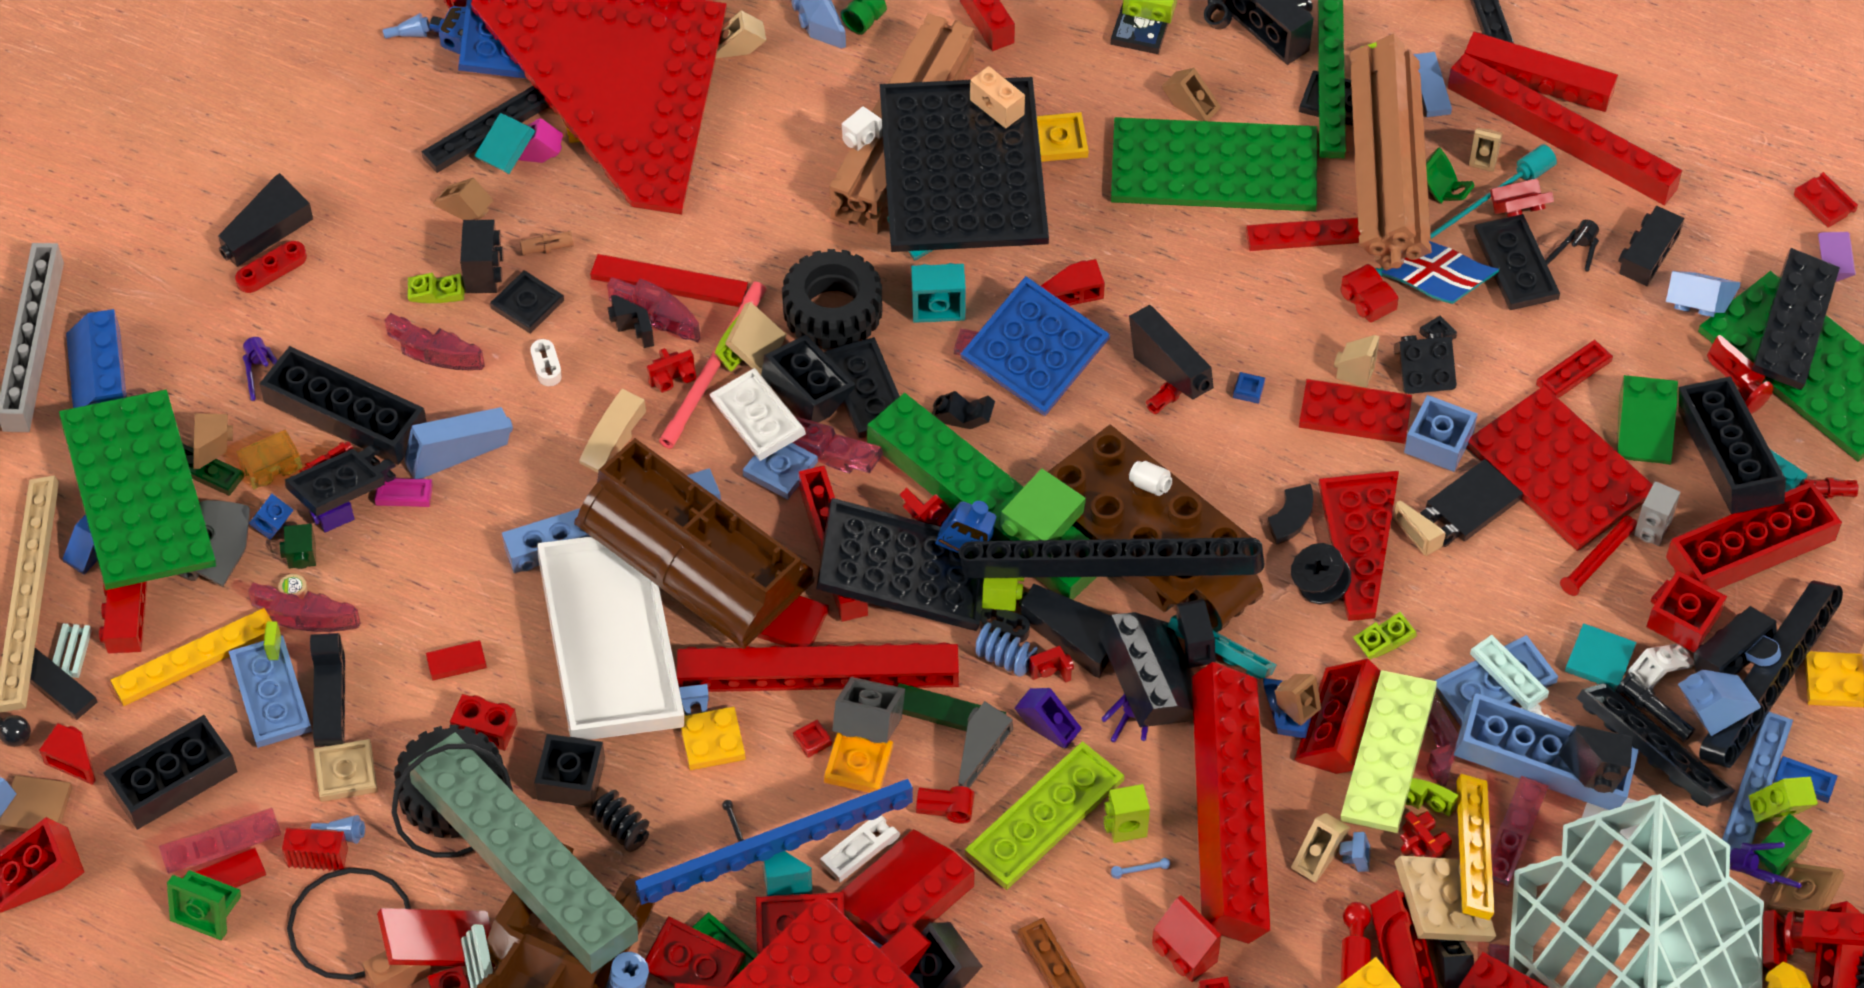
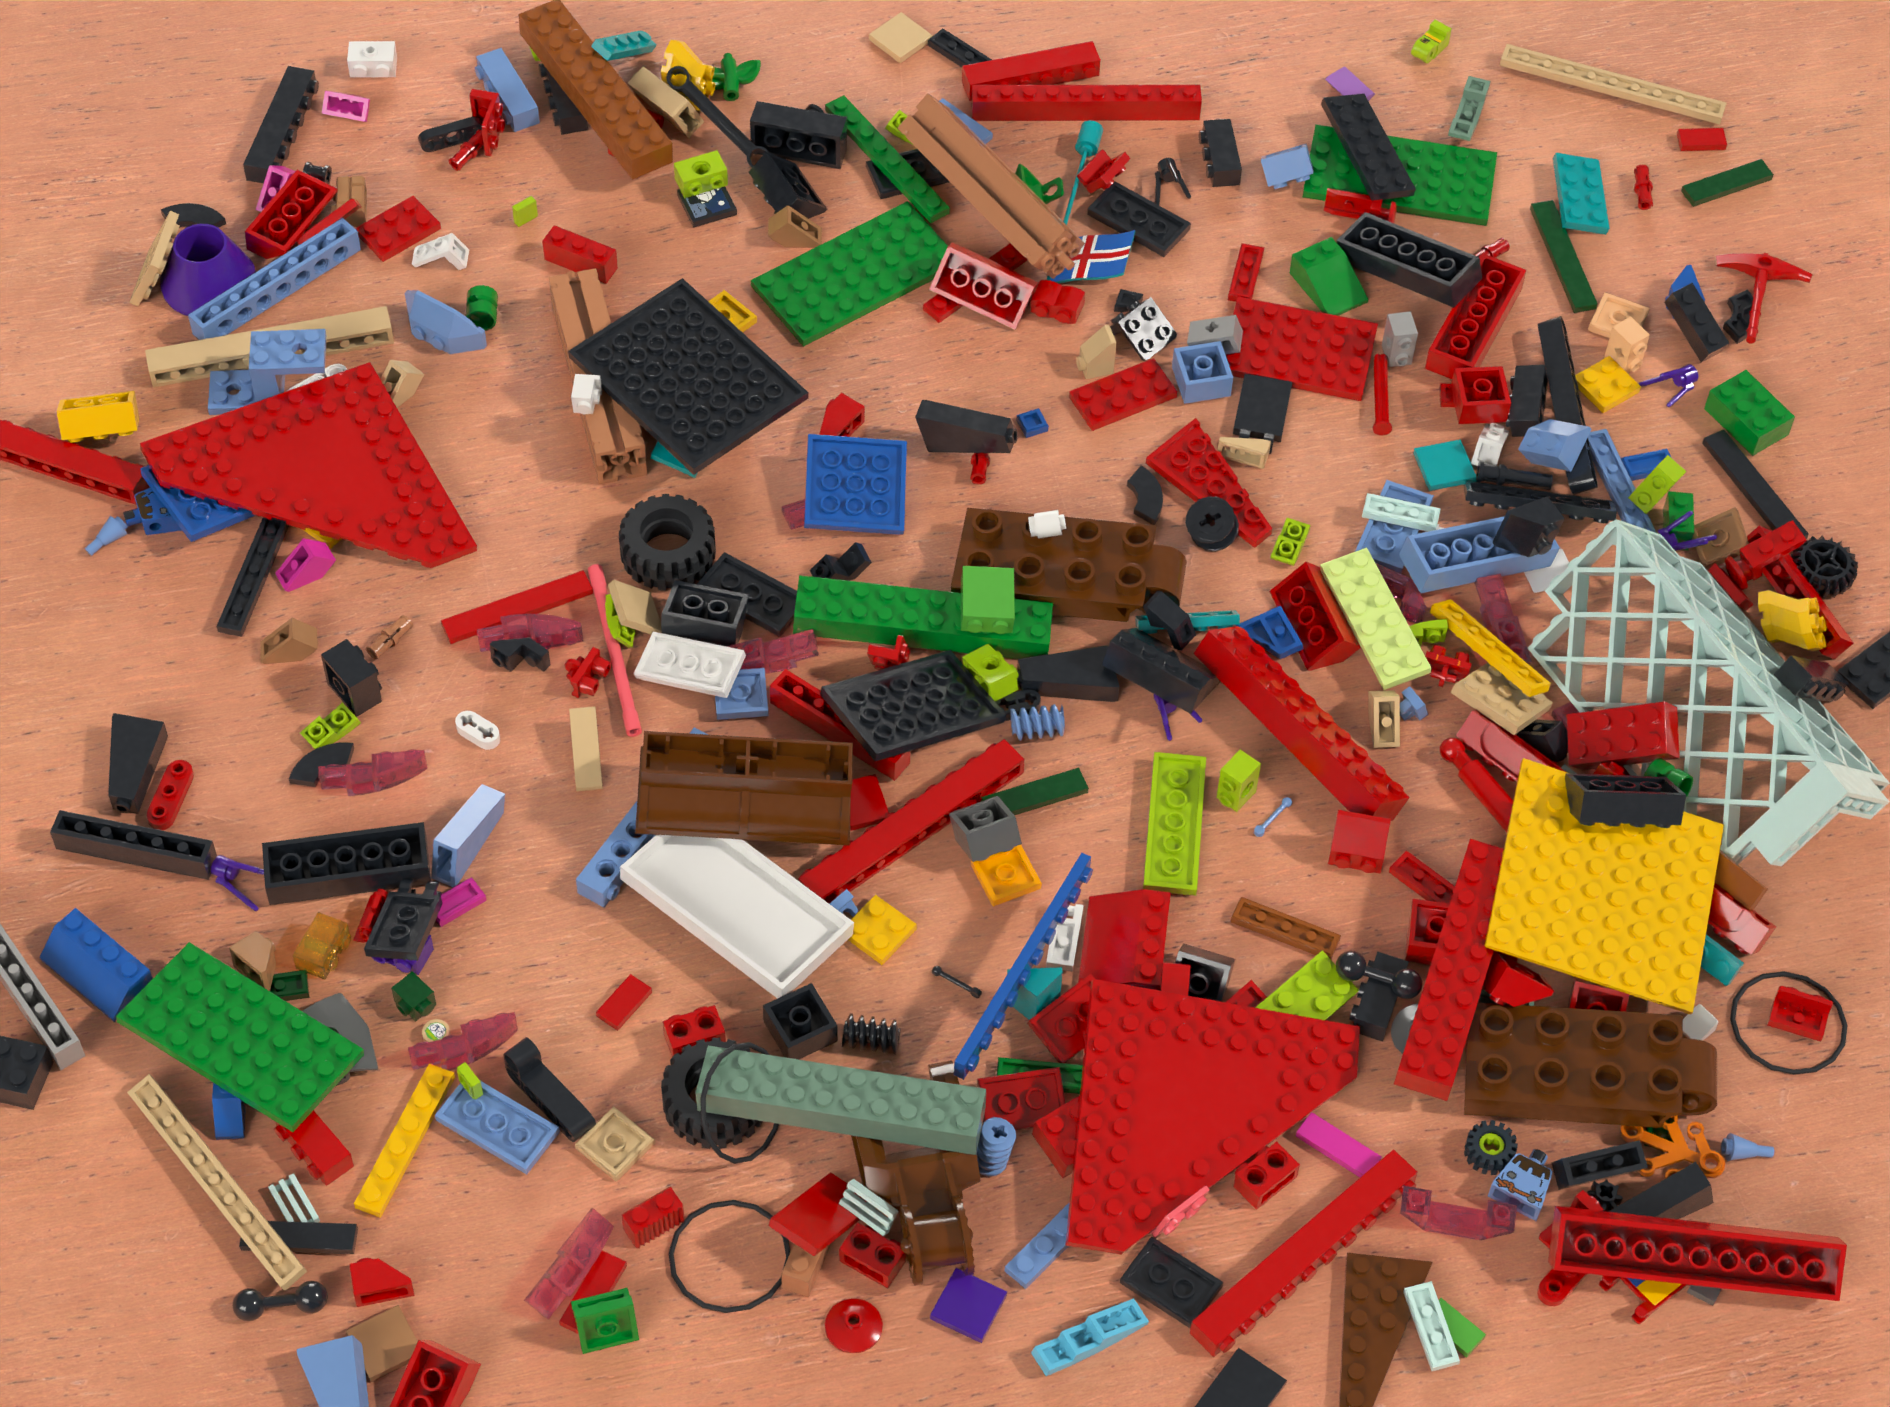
camera: 40 degrees left, 0 degrees up
(170, 772) = (479, 1238): black brick -> none
(202, 287) = (133, 844): none -> black brick
(271, 516) = (370, 988): blue brick -> none
(352, 826) = (658, 1184): medium blue cone -> none
(416, 311) = (307, 769): none -> black tile
(504, 143) = (285, 577): teal tile -> none
(527, 301) = (415, 693): black tile -> none
(812, 738) = (953, 880): red tile -> none
(938, 292) = (746, 488): teal brick -> none
(953, 804) = (1104, 857): red piece -> none
(965, 525) = (940, 648): blue torso -> none
(984, 736) = (1084, 797): dark grey slope -> none
(997, 97) = (676, 307): light nougat brick -> none
(1048, 716) = (1112, 750): dark purple slope -> none
(1049, 662) = (1080, 708): red bracket -> none
(1112, 558) = (1071, 600): black beam -> none
(1219, 53) = (785, 185): none -> black slope
(1299, 697) = (1281, 618): medium nougat slope -> none
(1310, 238) = (983, 285): none -> red slope
(1485, 149) = (1046, 147): tan slope -> none
(1492, 407) = (1222, 329): none -> light grey brick
(1764, 652) = (1554, 391): black tile -> none
(1825, 199) = (1305, 53): red plate -> none

